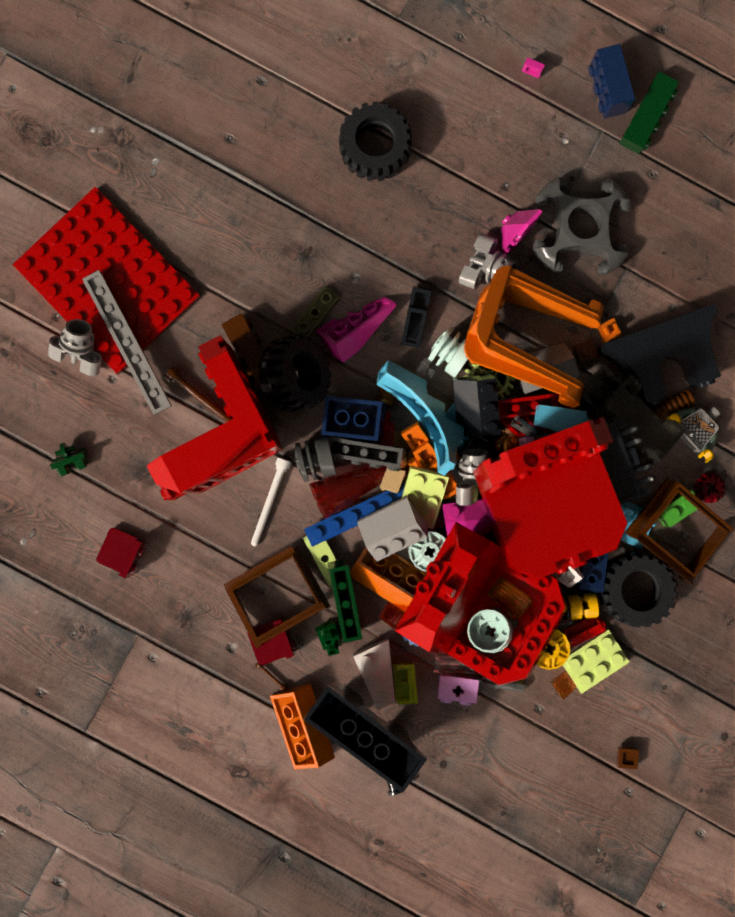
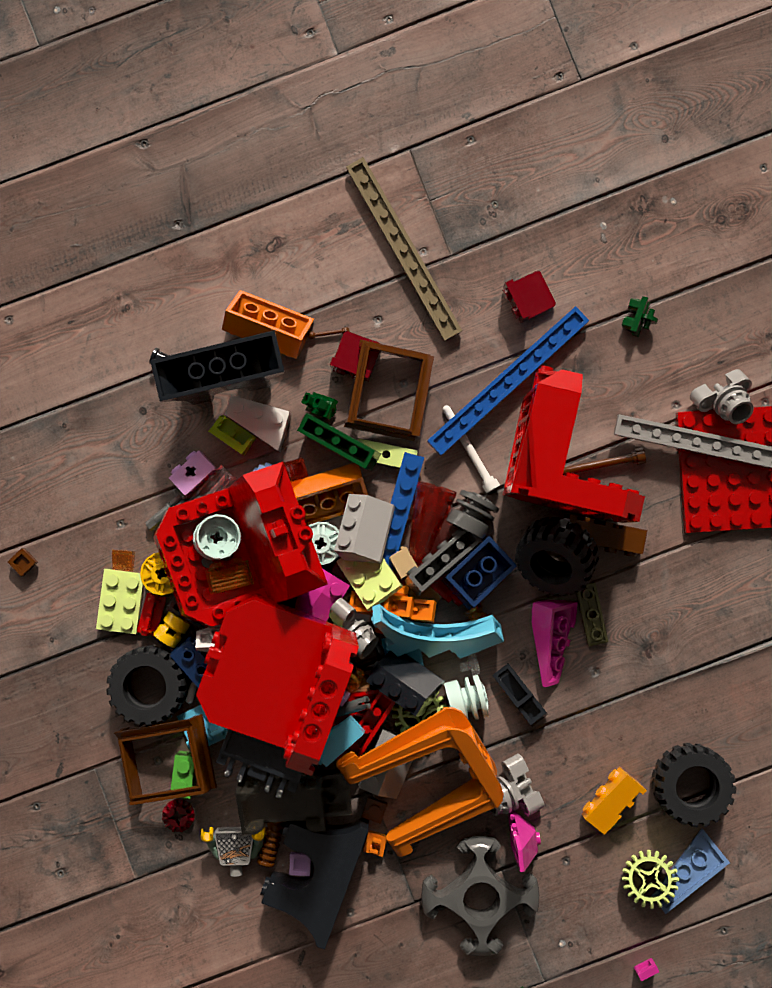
camera: 140 degrees right, 0 degrees up
(162, 674) = (404, 249): none -> dark tan plate
(196, 515) = (507, 381): none -> blue plate
(433, 92) = (694, 868): none -> medium blue wing
(435, 189) = (612, 800): none -> light orange wedge
(484, 116) = (640, 894): none -> yellowish green gear
(670, 371) = (299, 864): none -> lavender tile

